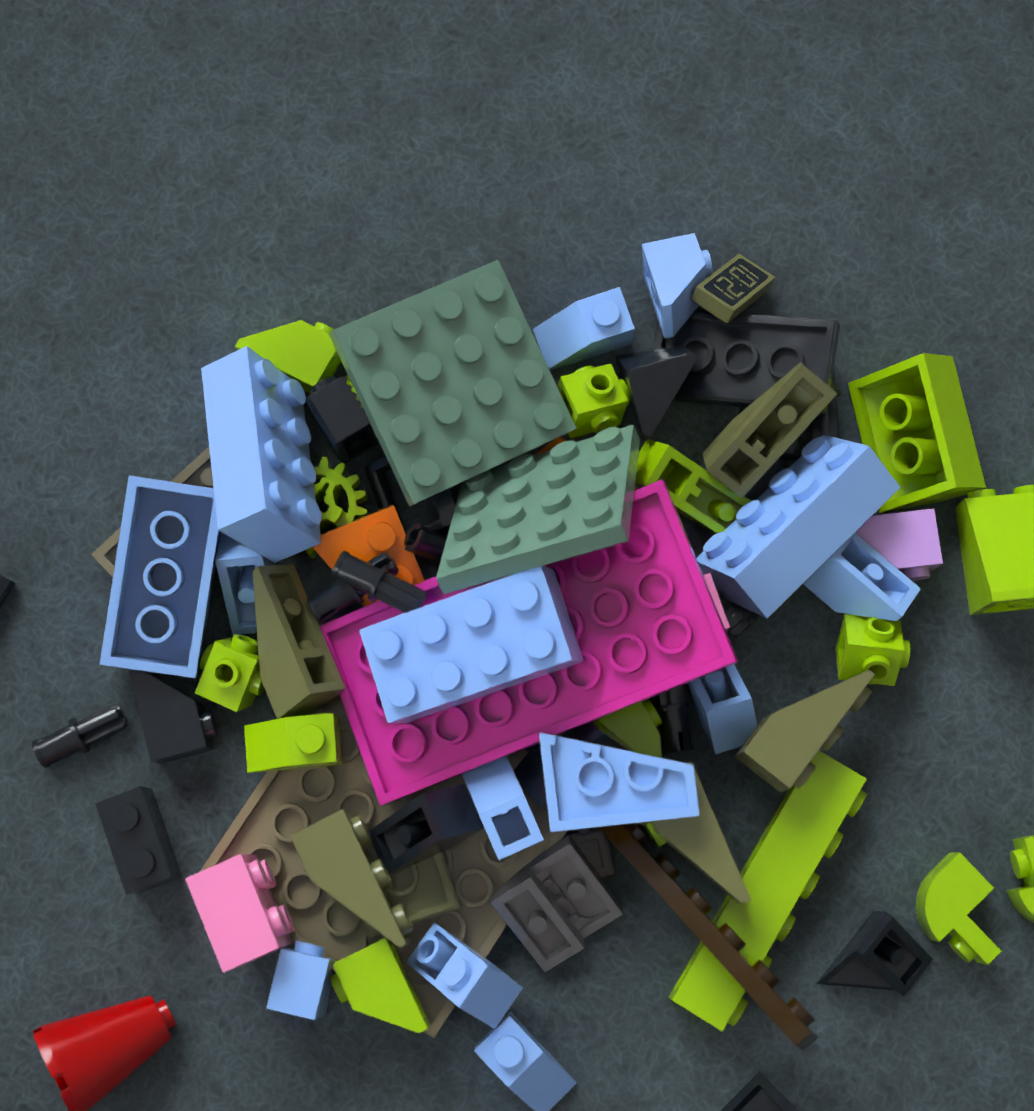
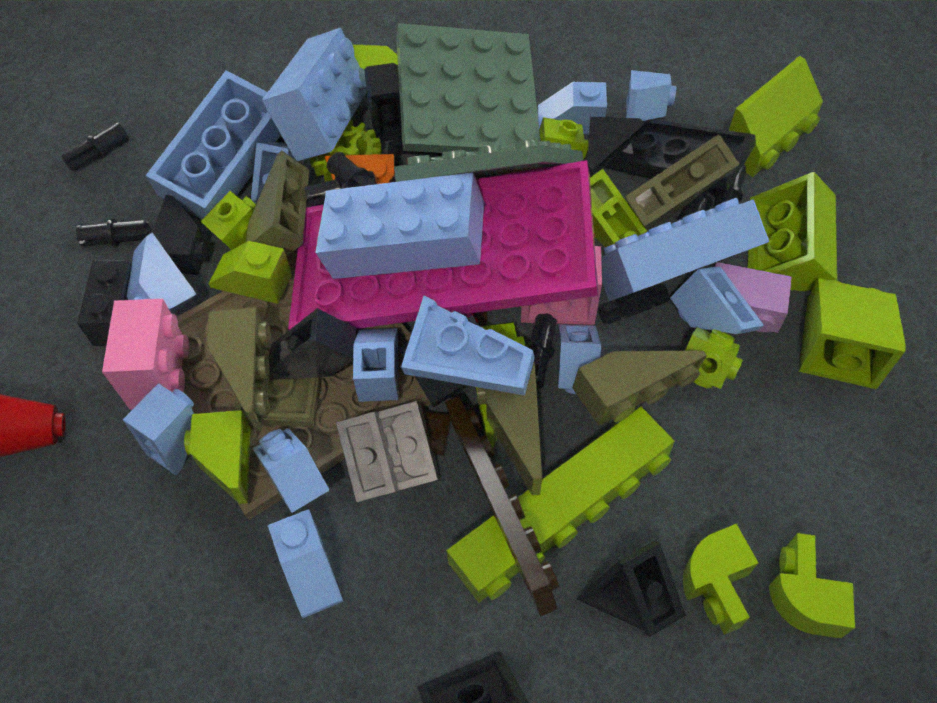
camera: 20 degrees right, 20 degrees down
(186, 802) = (157, 276): none -> light blue slope
(732, 288) = (684, 111): tile -> none
(853, 260) = (779, 114): none -> lime slope

